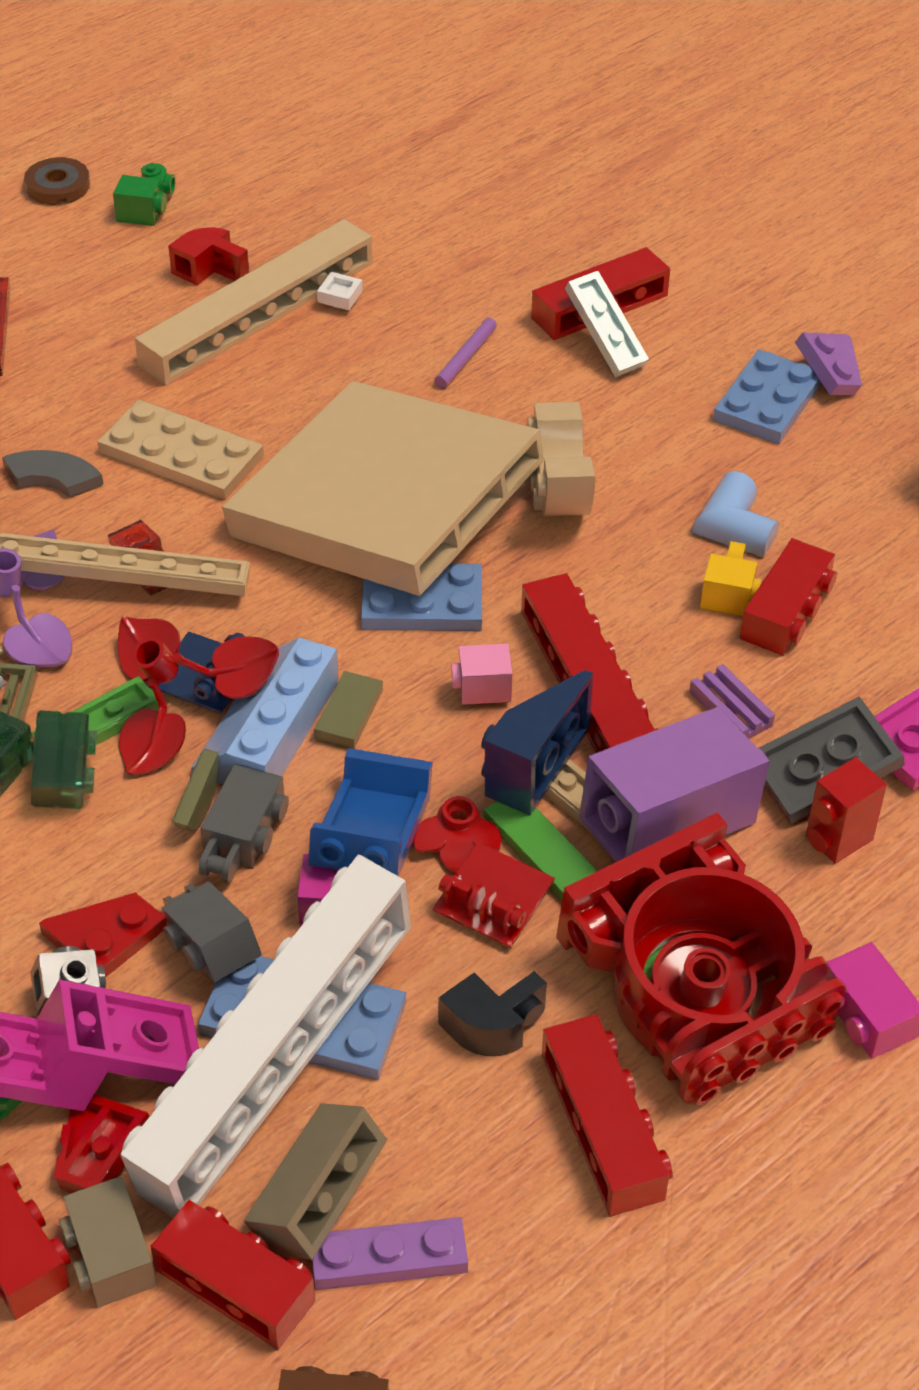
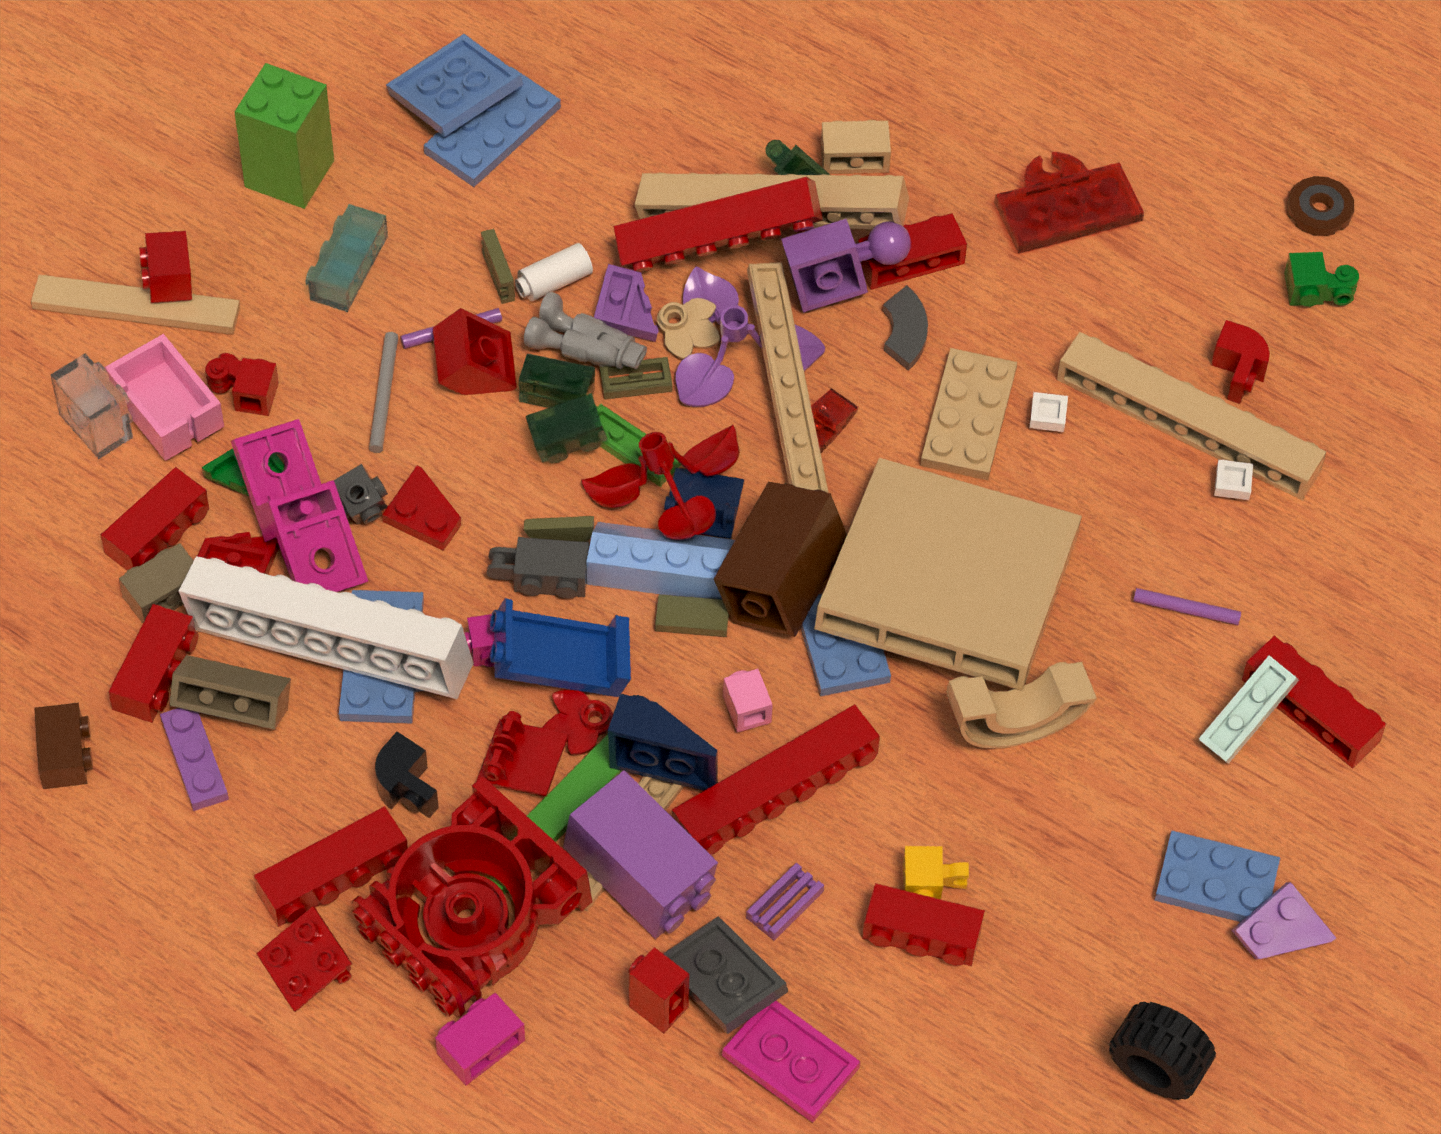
camera: 75 degrees right, 10 degrees up
(208, 390) = (1048, 412): none -> white plate
(209, 931) = (427, 570): dark grey brick -> none
(326, 596) = (781, 558): none -> reddish brown brick
(728, 516) = (1021, 863): light blue brick -> none
(730, 1167) = (305, 959): none -> red hinge

